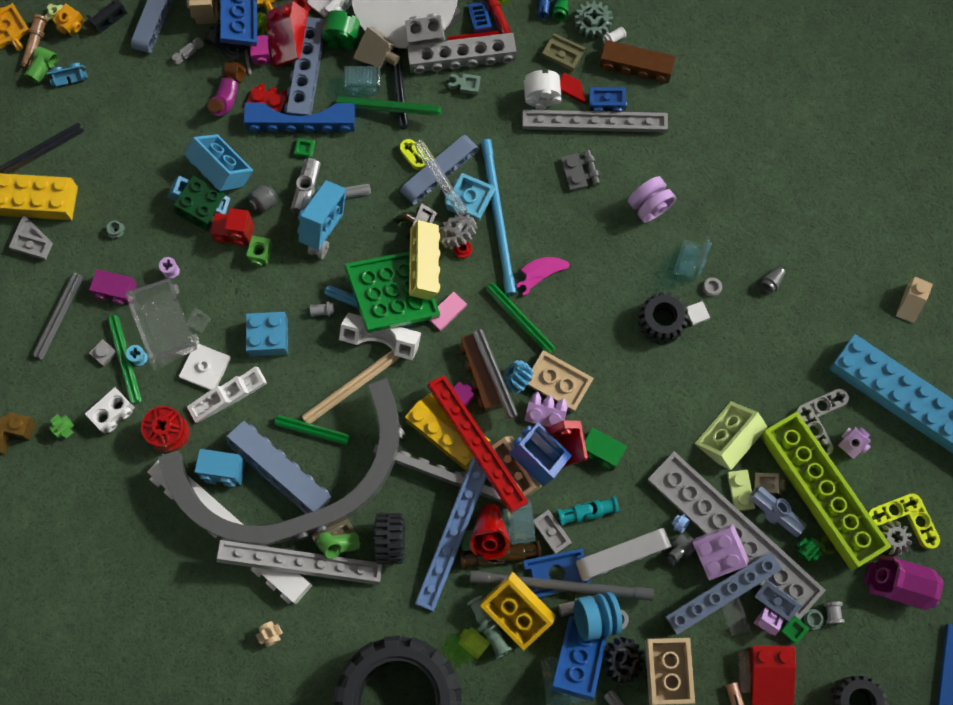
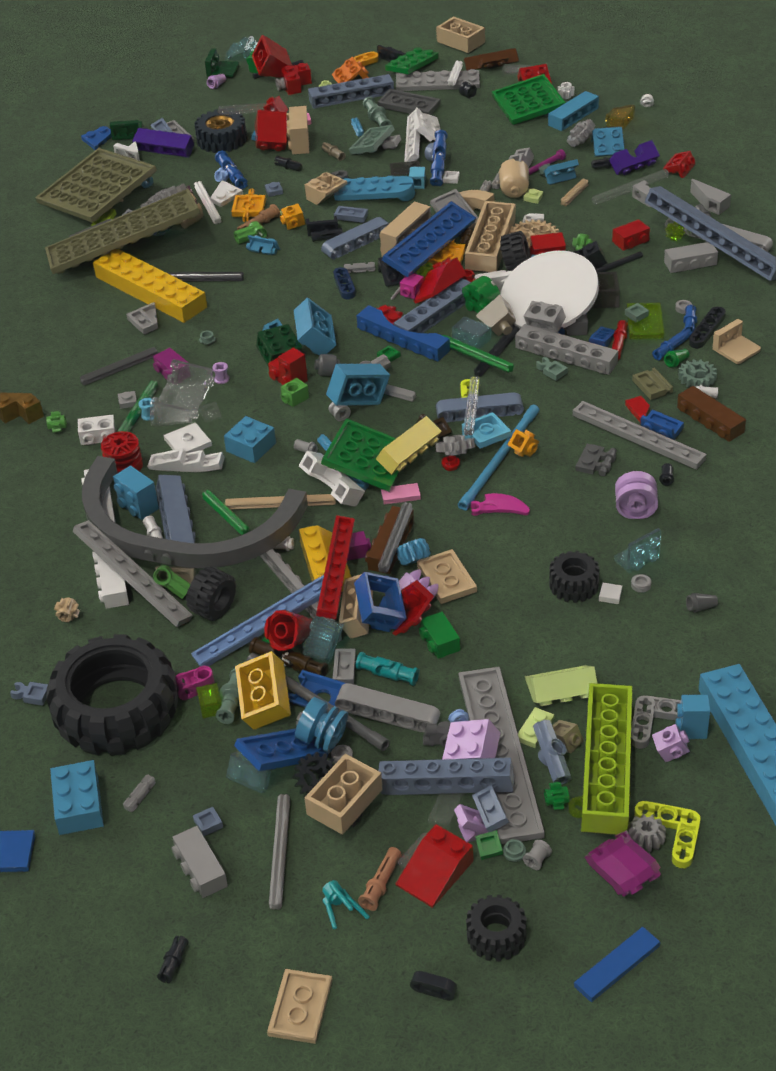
camera: 40 degrees right, 30 degrees down
(119, 23) = (316, 235): none -> black pin
(186, 73) = (344, 279): none -> dark blue beam
(227, 91) = (359, 301): piece -> none
(269, 495) = (152, 528): none -> white pin
(444, 635) = (194, 678): none -> dark pink piece
(512, 192) = (523, 443): none -> light orange brick
(520, 318) = (454, 523): green axle -> none
(542, 89) = (609, 391): white brick -> none
(650, 154) = (666, 477): none -> black pin
(857, 408) = (693, 716): none -> dark azure brick

